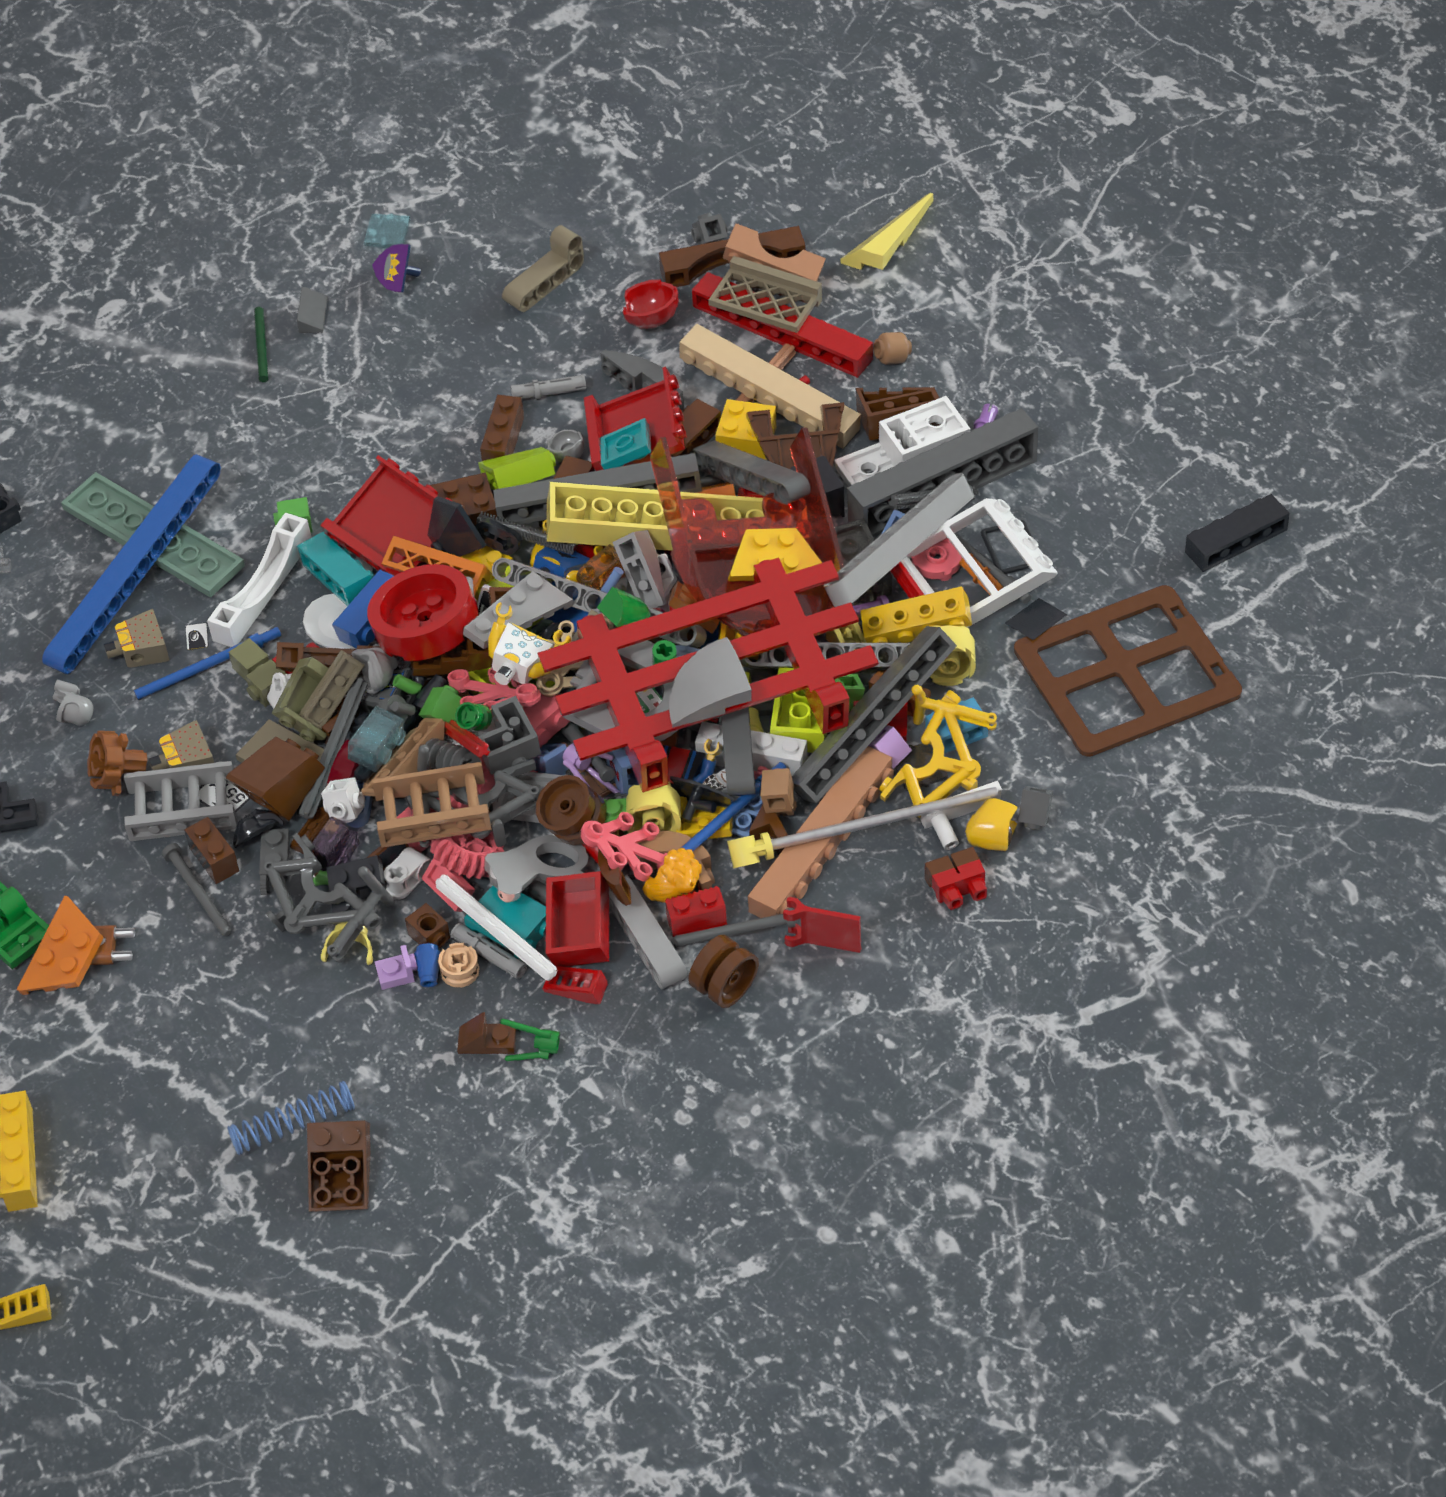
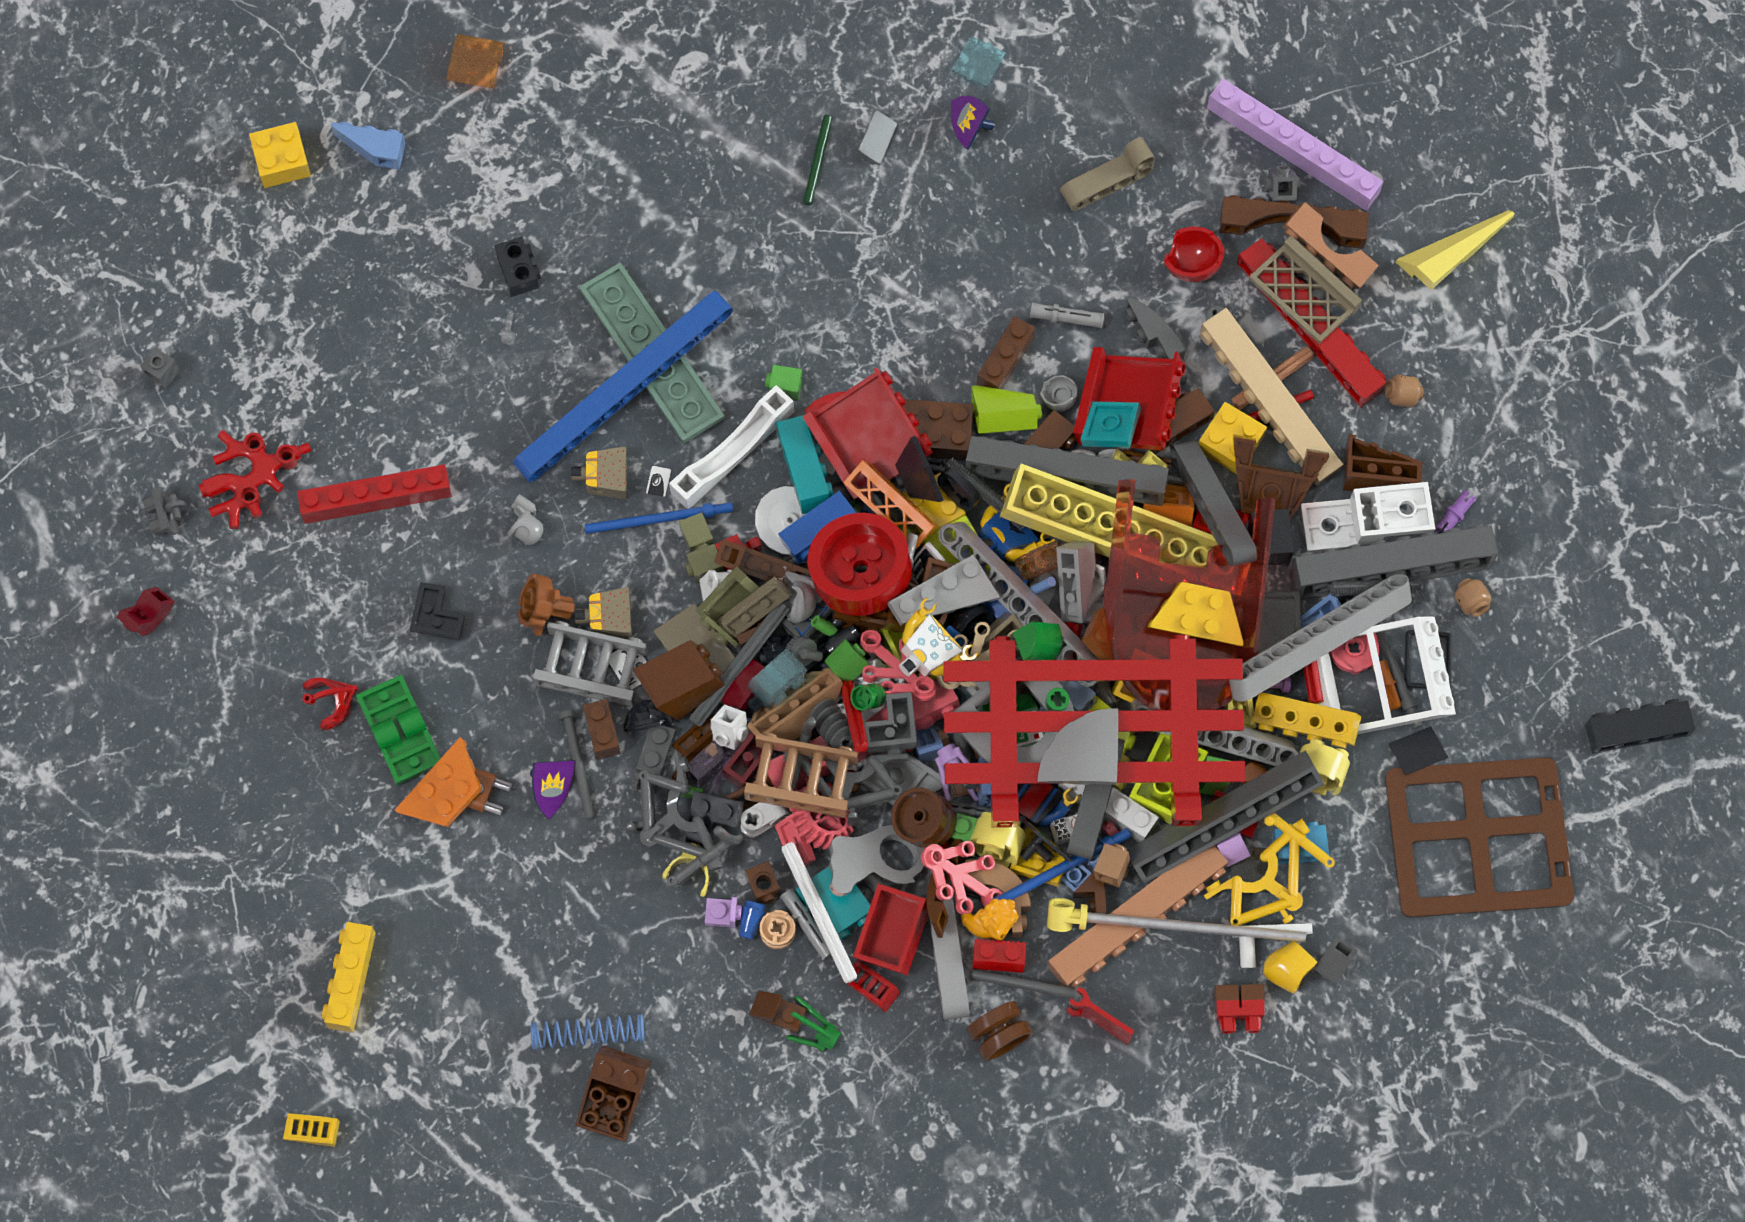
camera: 15 degrees right, 20 degrees up
(175, 911) = (551, 784): none -> dark purple shield
(364, 834) = (744, 763): none -> dark red brick
(697, 198) = (1294, 144): none -> lavender brick
(1031, 482) = (1473, 597): none -> medium nougat head

